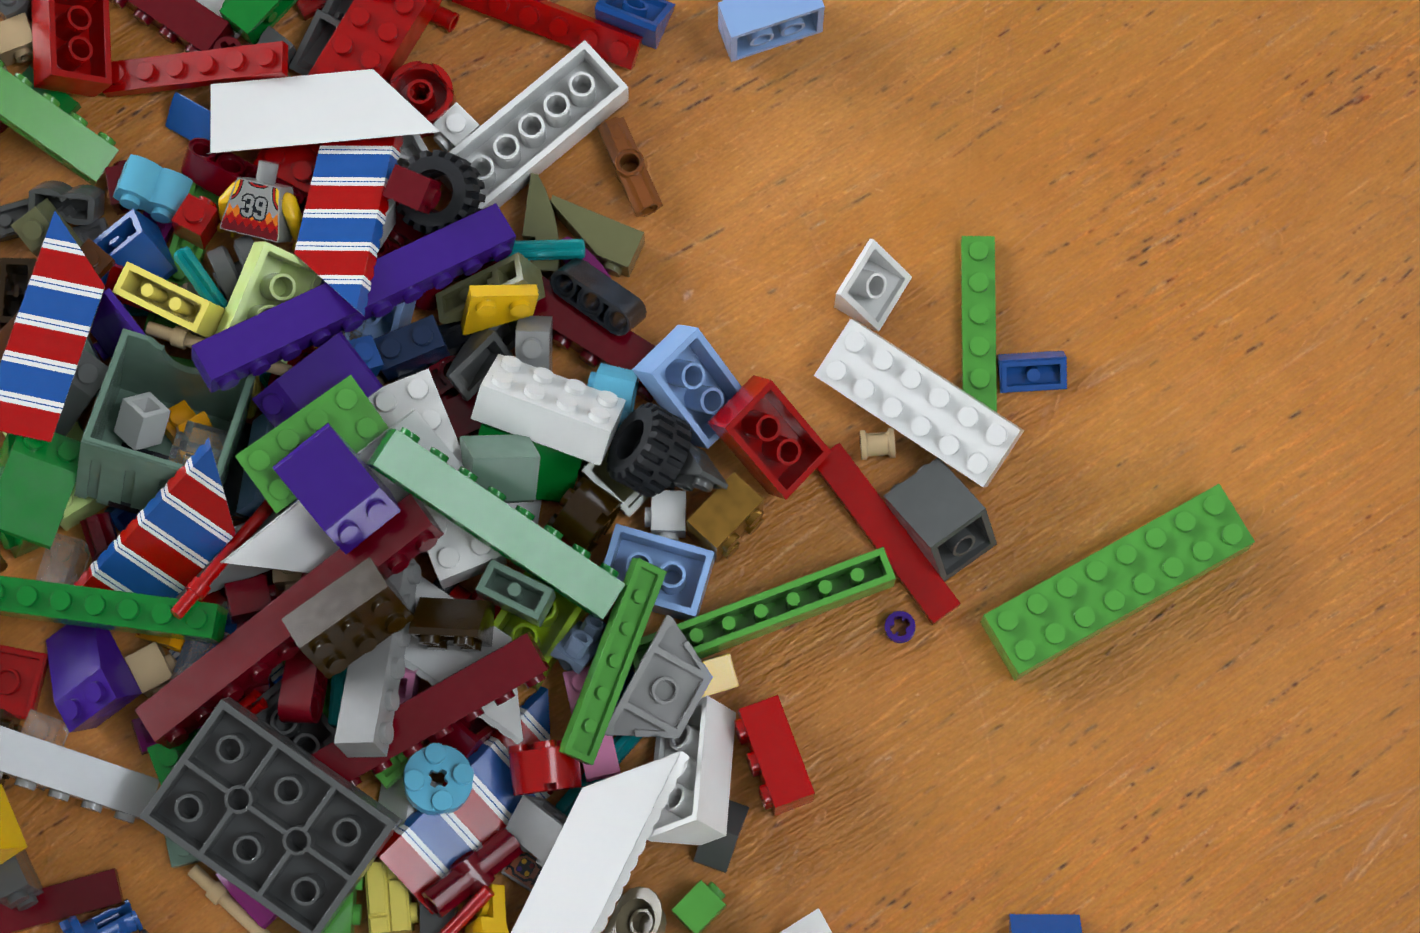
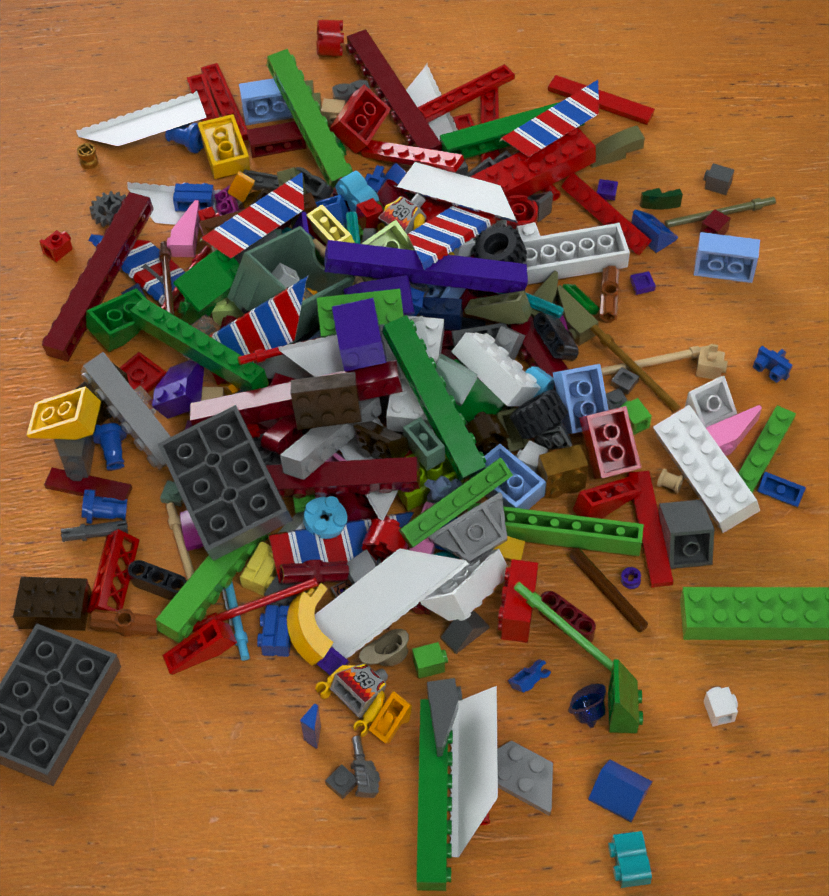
camera: 30 degrees right, 20 degrees down
(43, 821) = (110, 438): none -> blue piece
(159, 144) = (376, 180): none -> blue plate
(413, 189) = (486, 235): dark red brick -> none
(438, 50) = (544, 203): none -> dark grey slope
(497, 305) = (498, 311): yellow wing -> none
(591, 197) = (582, 298): none -> green tile
(666, 120) = (642, 282): none -> dark purple plate
(672, 257) = (607, 341): none -> pearl gold bar
(729, 308) = (624, 380): none -> flat silver plate
(733, 348) = (615, 399): none -> dark grey plate
(774, 362) = (638, 415): none -> bright green brick
(800, 206) = (693, 352): none -> tan bar
(806, 525) = (606, 498): none -> red slope
(807, 760) = (534, 600): none -> bright green bar
(837, 215) = (711, 363): none -> tan brick
(844, 860) = (526, 678): none -> blue plate
(865, 734) = (564, 608): none -> dark red beam
(879, 662) = (608, 590): none -> reddish brown axle
(919, 323) = (733, 430): none -> bright pink slope
(924, 163) = (773, 361): none -> blue hips
(943, 853) = (588, 704): none -> clear blue piece
(990, 829) = (623, 700): none -> green slope
(1114, 758) = (721, 706): none -> white brick

